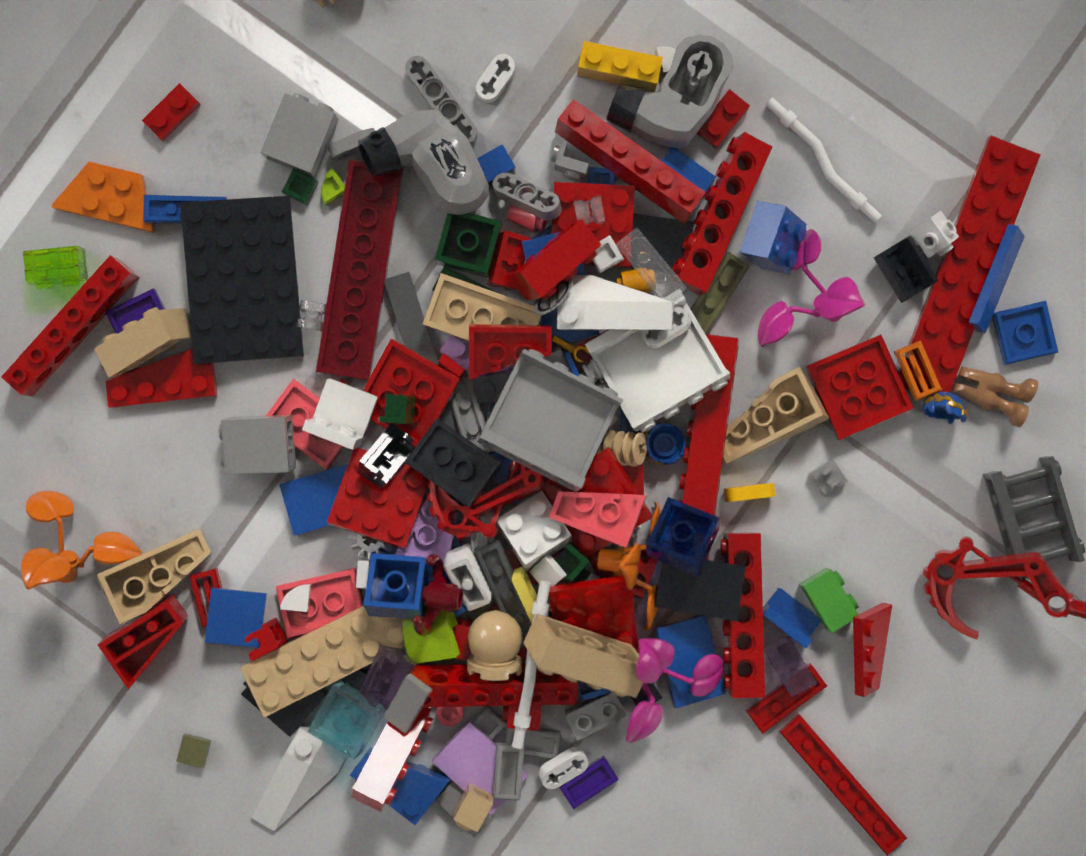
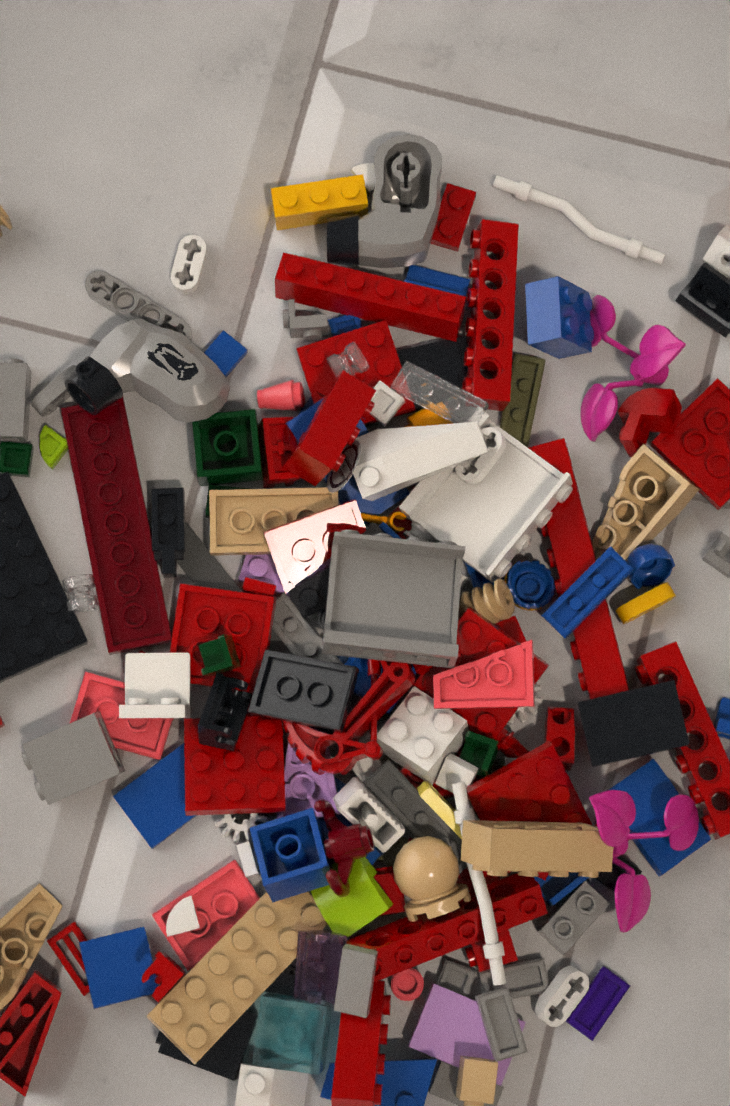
camera: 20 degrees left, 10 degrees down
(398, 290) = (168, 528): none -> black hinge
(532, 205) = (284, 381): light grey beam -> none
(627, 565) = (531, 729): orange plant -> none
(683, 536) = (591, 673): clear blue brick -> none
(706, 469) = (587, 592): none -> blue tile
(764, 464) = (651, 565): none -> blue hair
(812, 340) = (645, 413): none -> red brick

